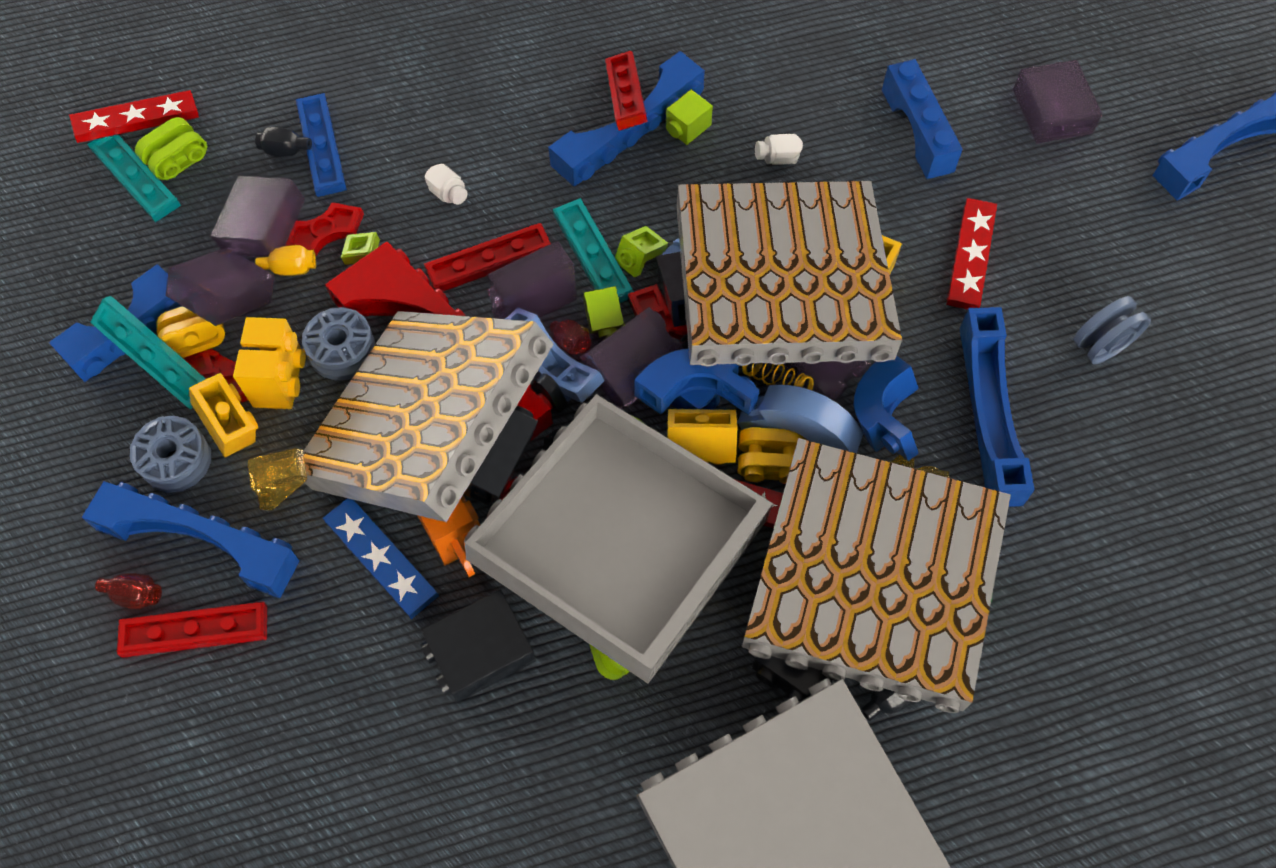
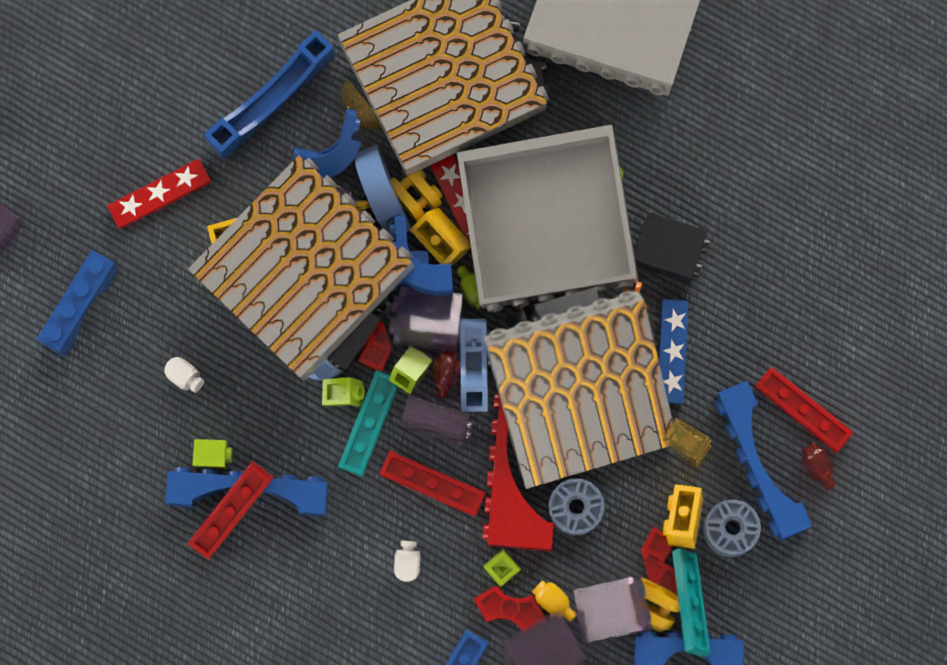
camera: 135 degrees left, 15 degrees up
(271, 373) = (630, 524): yellow piece -> none
(1112, 330) = (158, 65): sand blue wheel -> none

